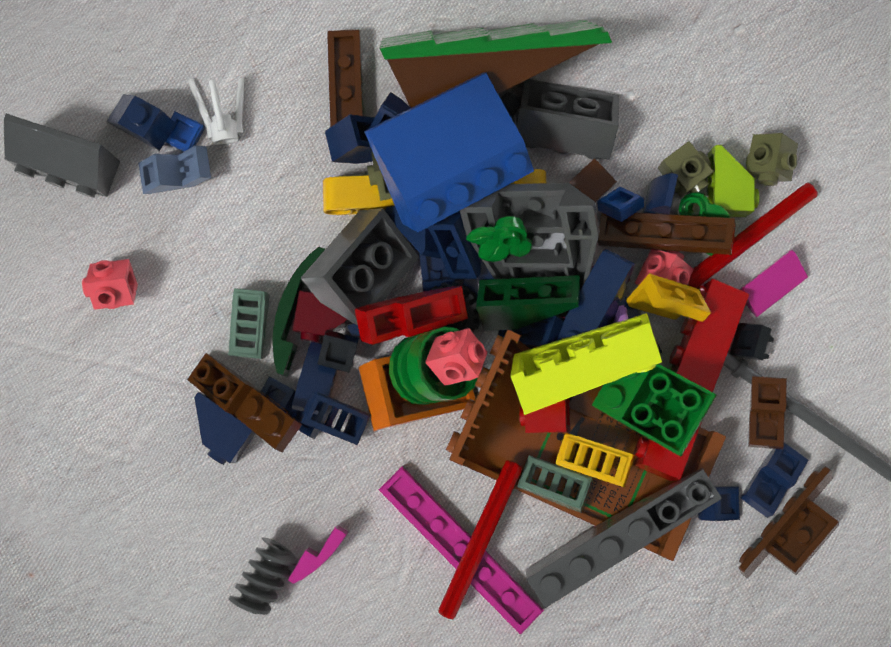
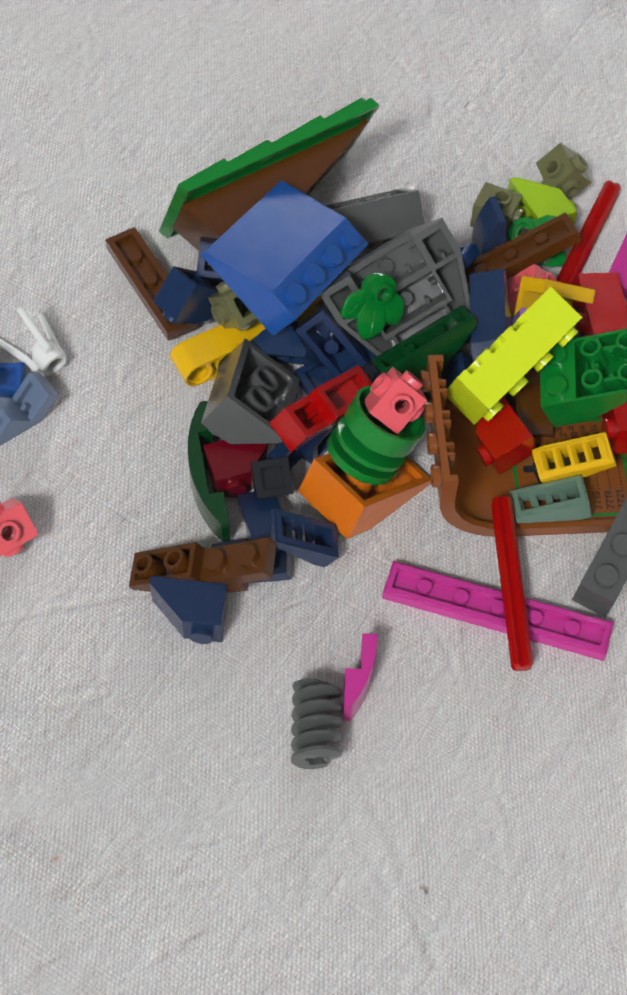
camera: 30 degrees left, 25 degrees down
(260, 325) = (157, 484): sand green slope -> none

